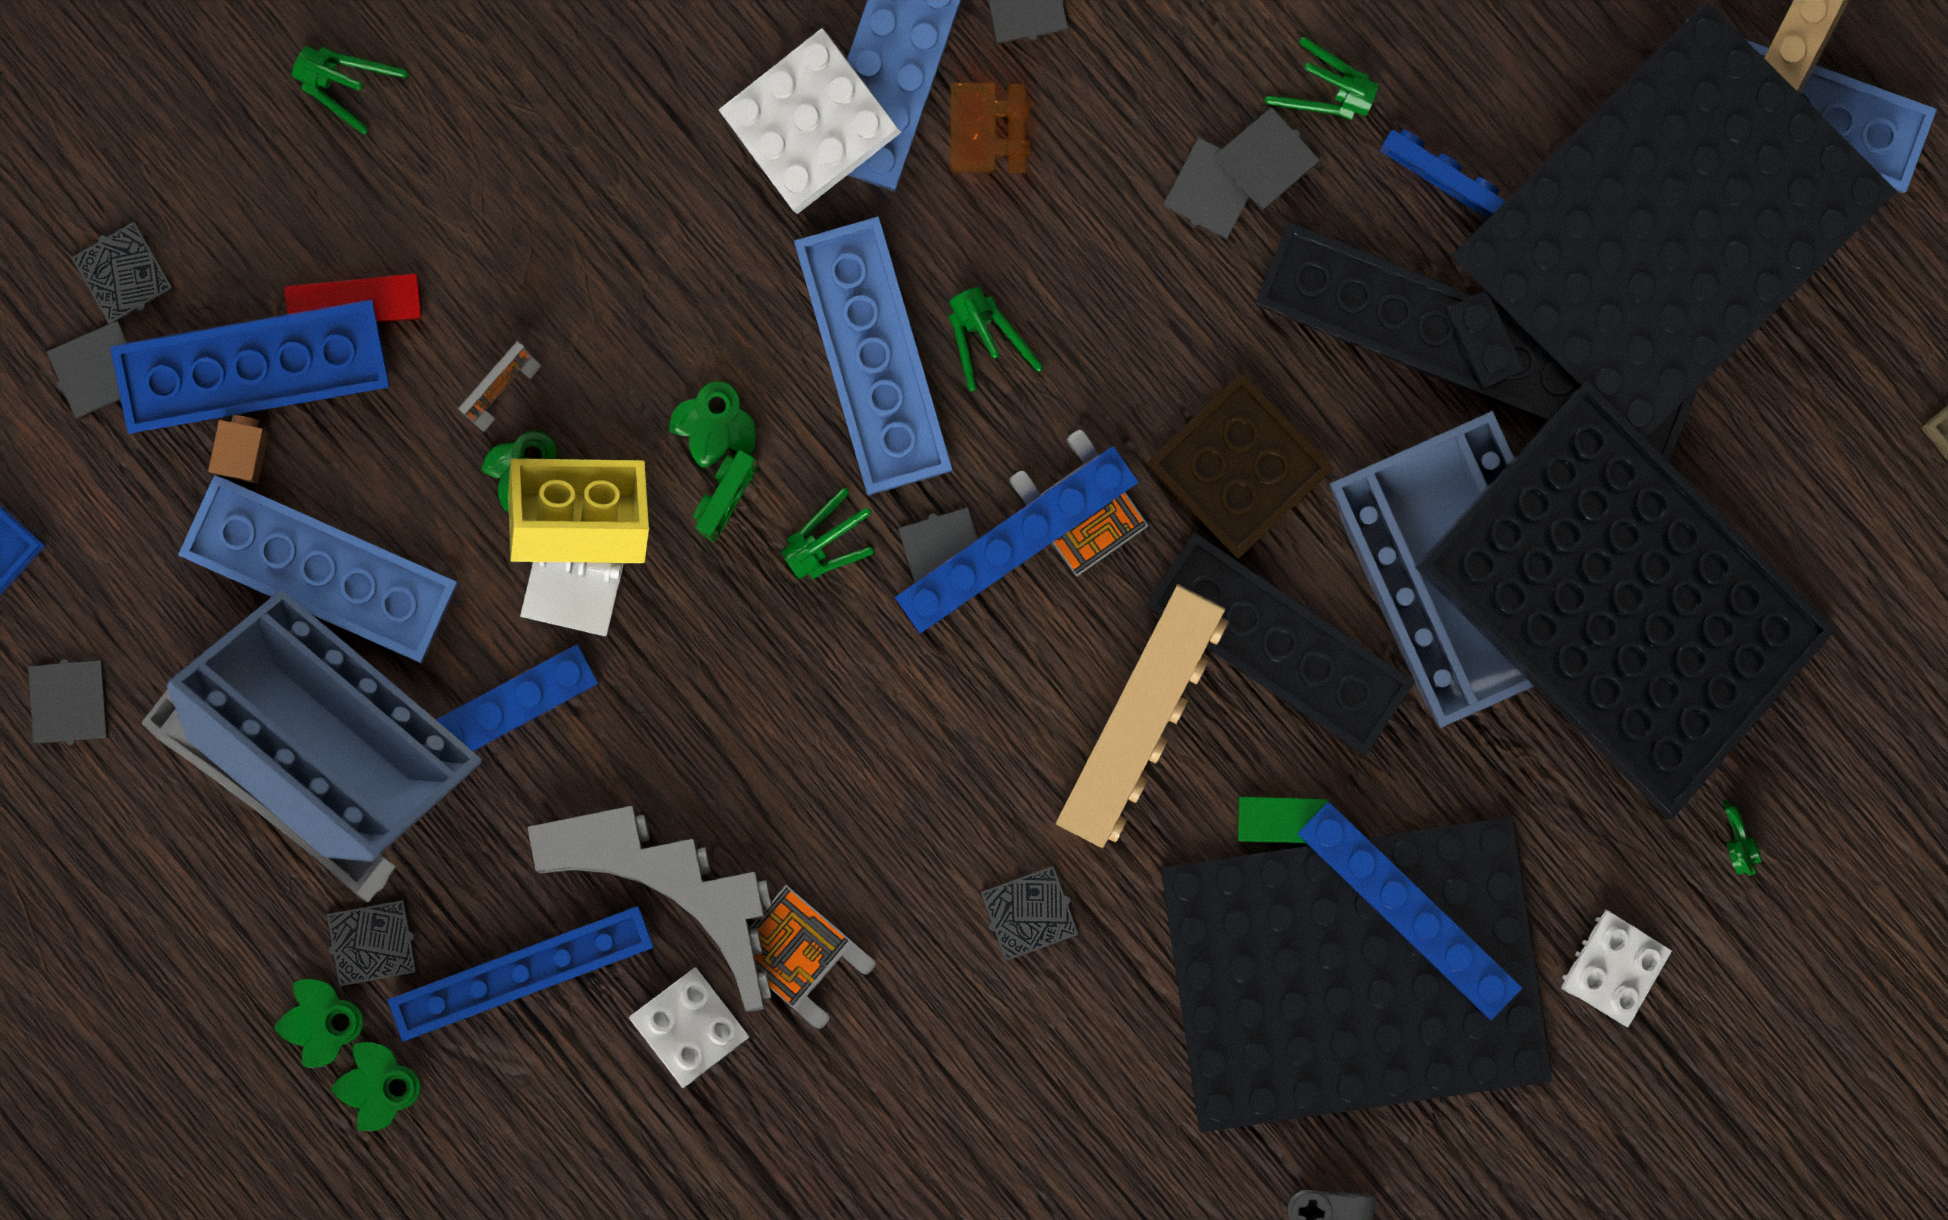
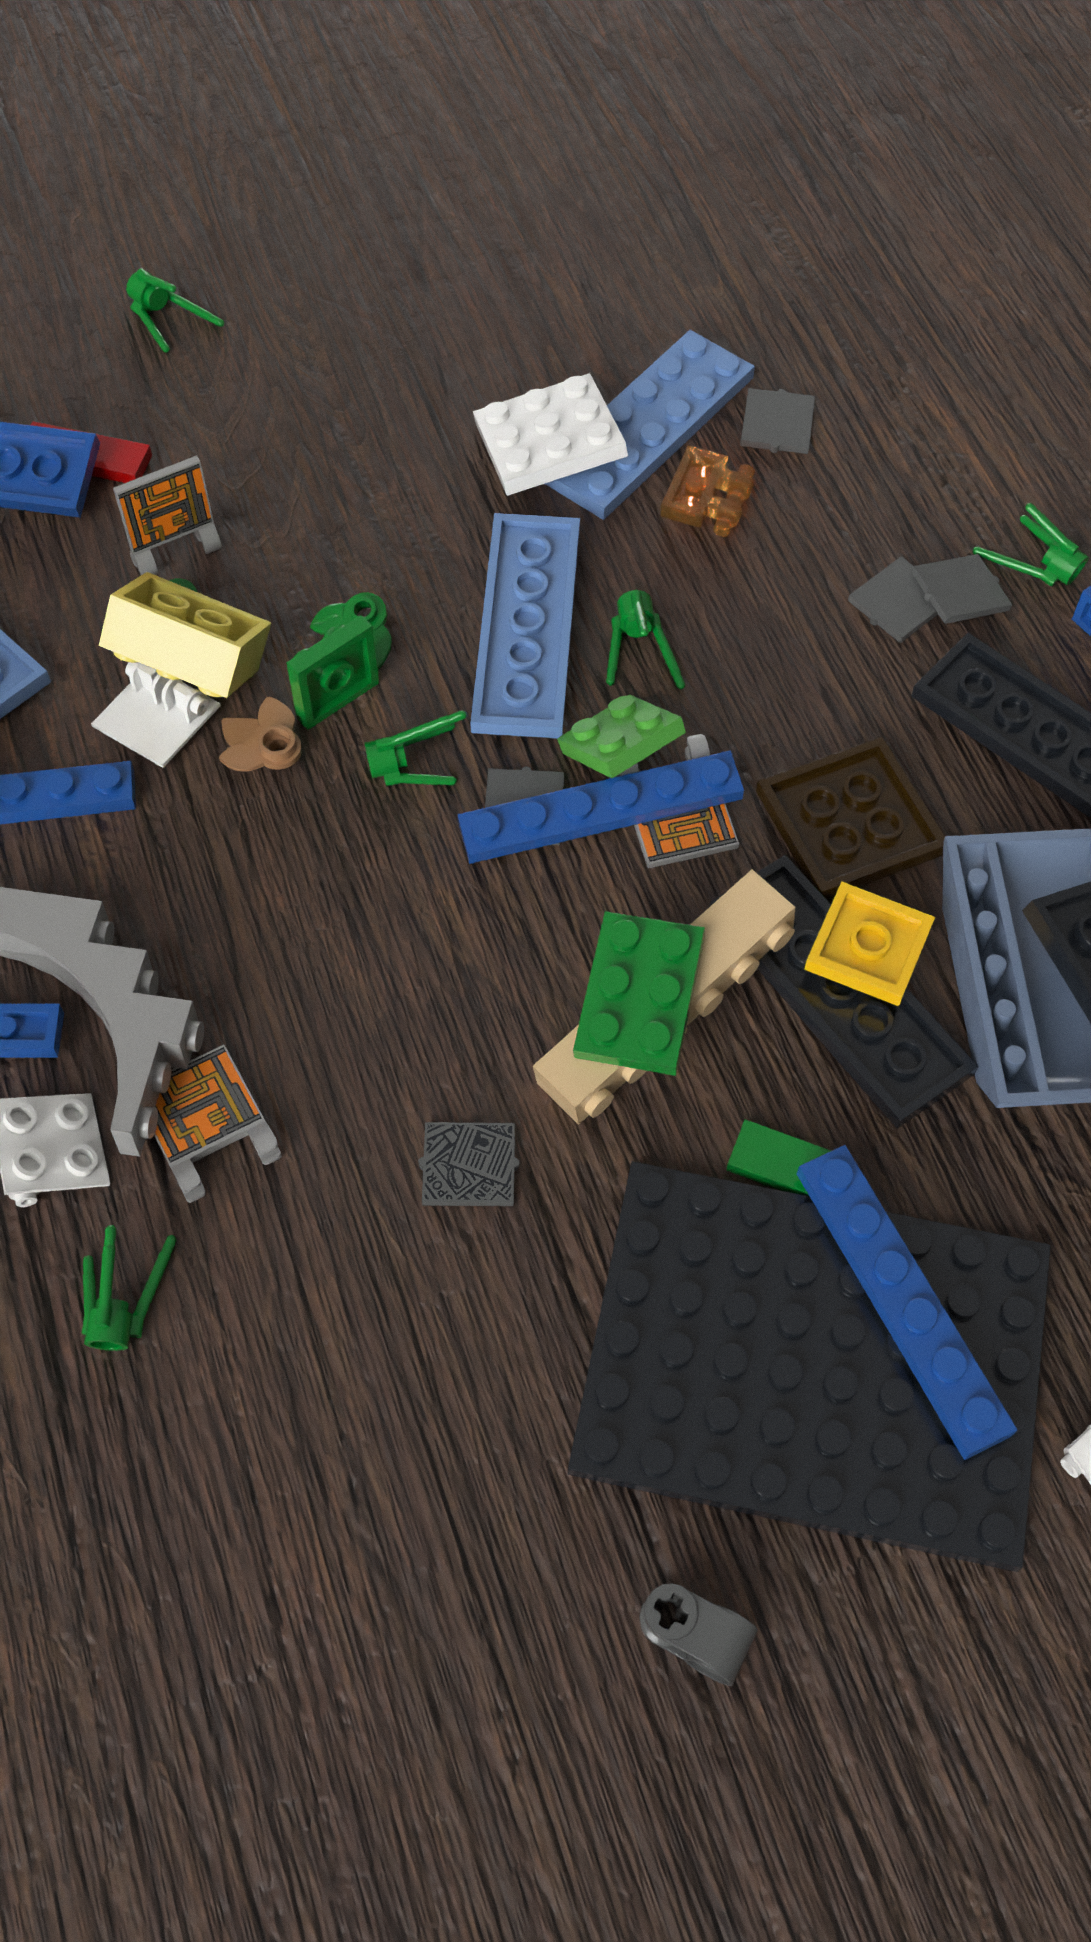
camera: 20 degrees right, 25 degrees down
(675, 572) = (255, 740): none -> medium nougat plate
(808, 1151) = (107, 1320): none -> green plant
(1008, 461) = (621, 735): none -> bright green plate
(1122, 734) = (639, 993): none -> green plate
(1294, 605) = (869, 943): none -> yellow plate

